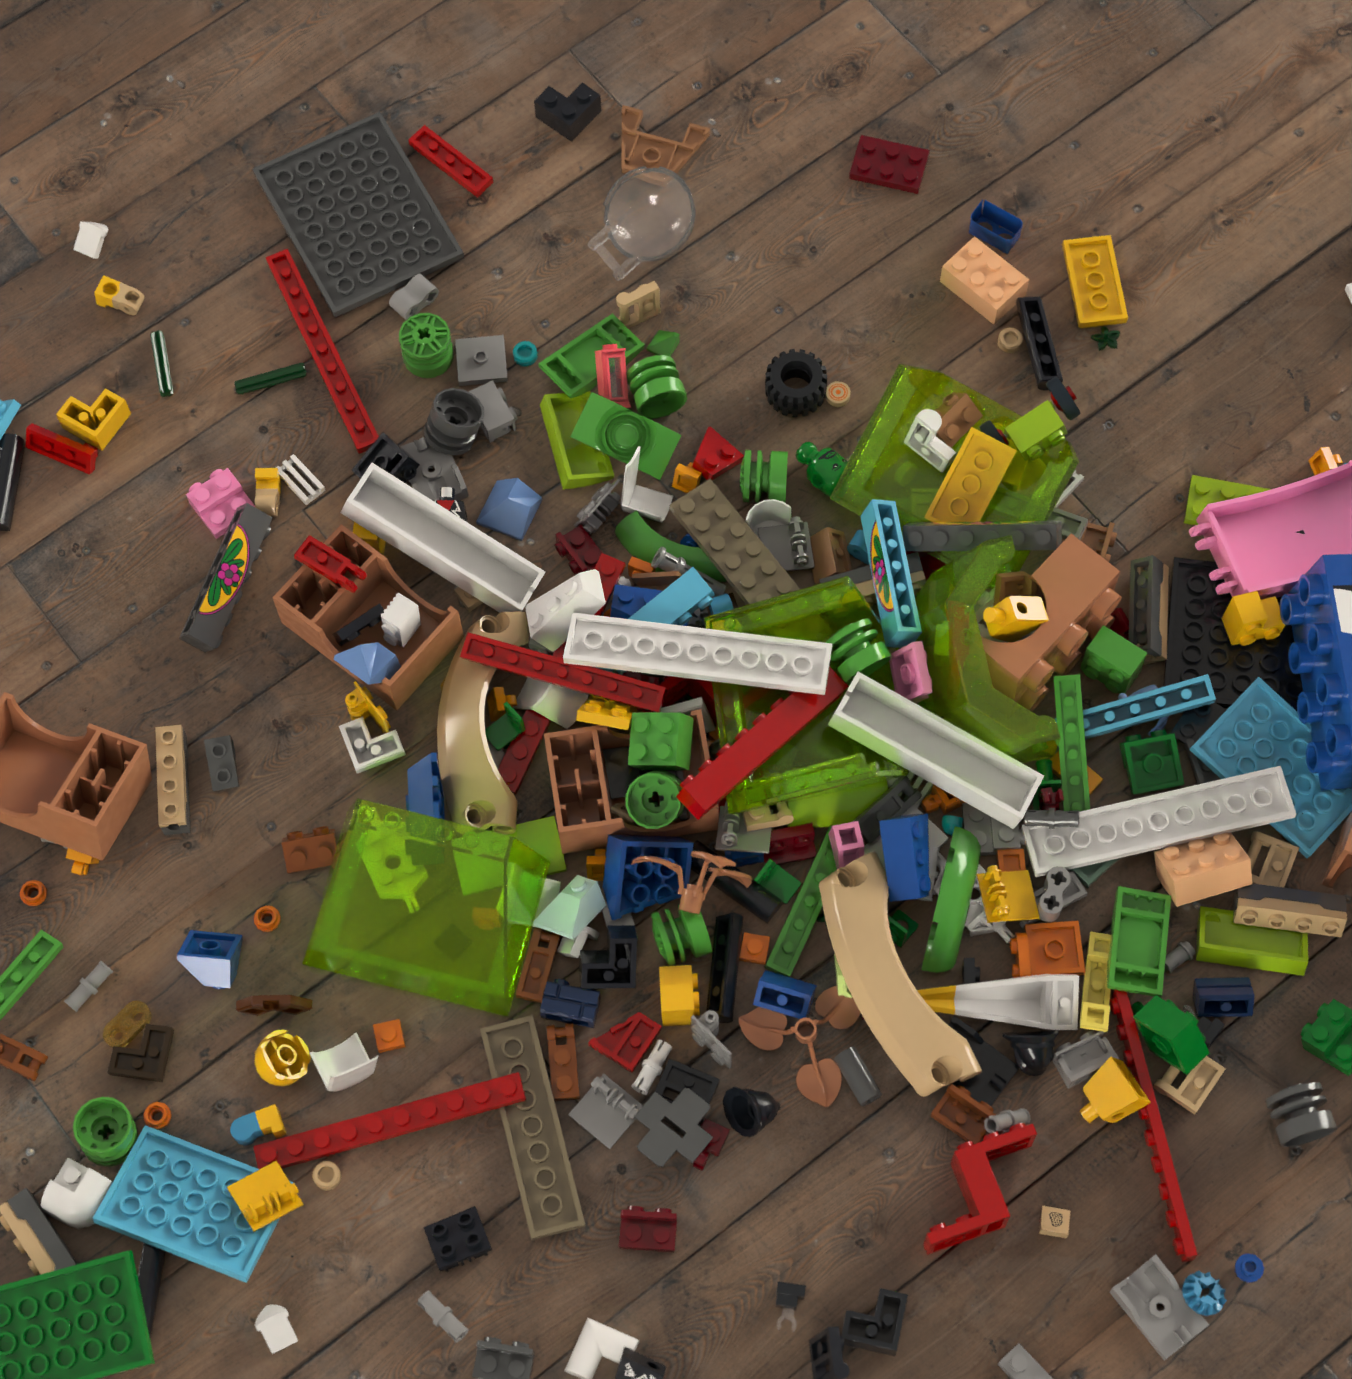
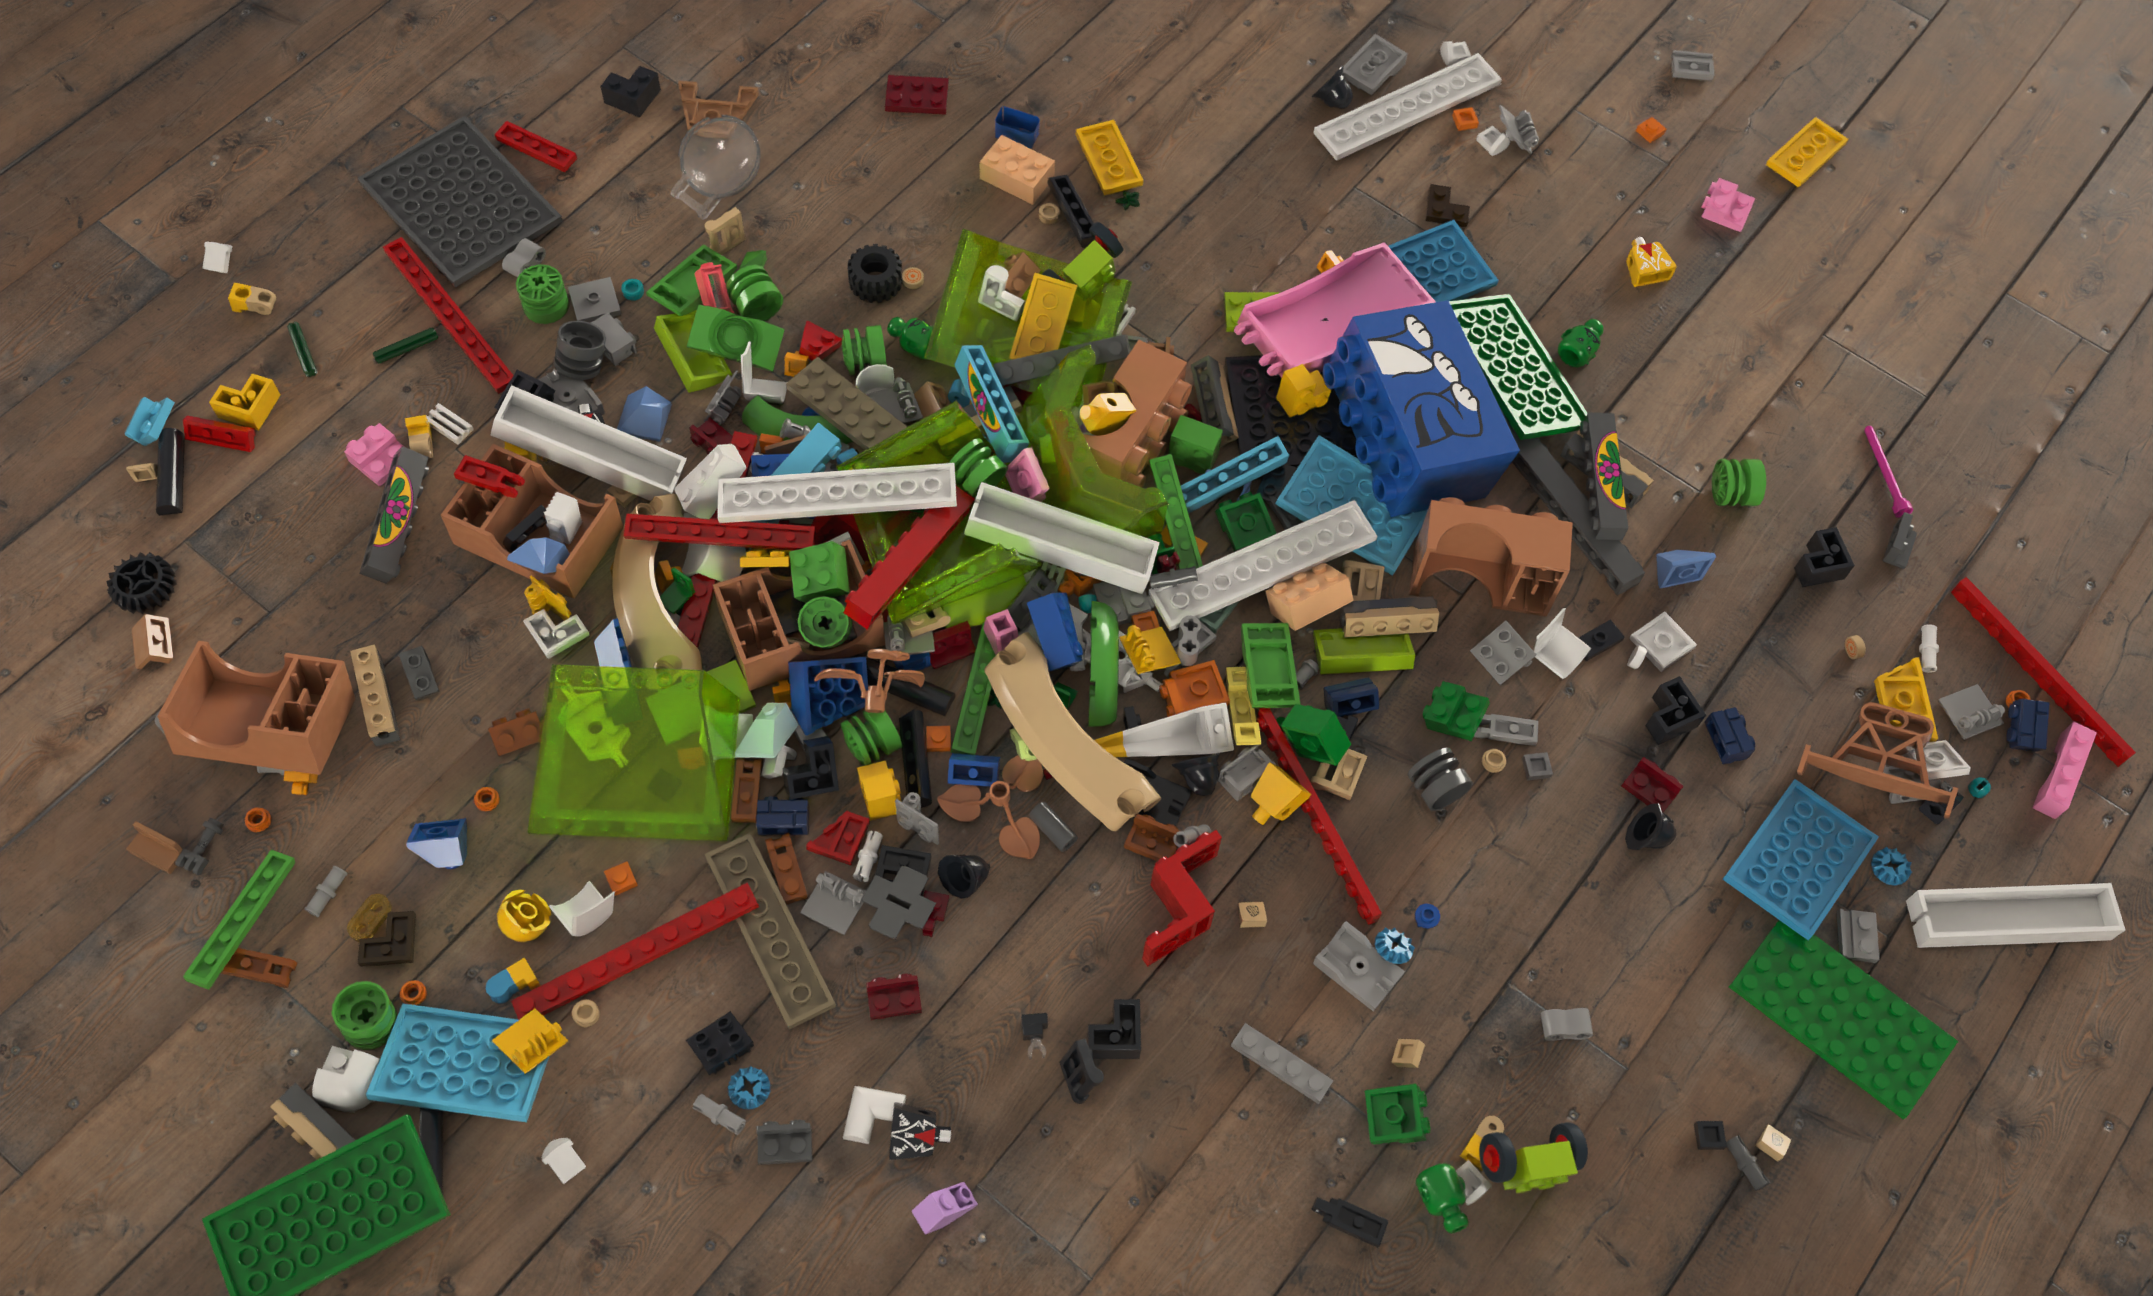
camera: 20 degrees left, 5 degrees down
(263, 1004) = (495, 872): reddish brown tile -> none
(489, 1300) = (744, 1099): none -> dark azure gear
(778, 881) = (947, 677): green bracket -> none

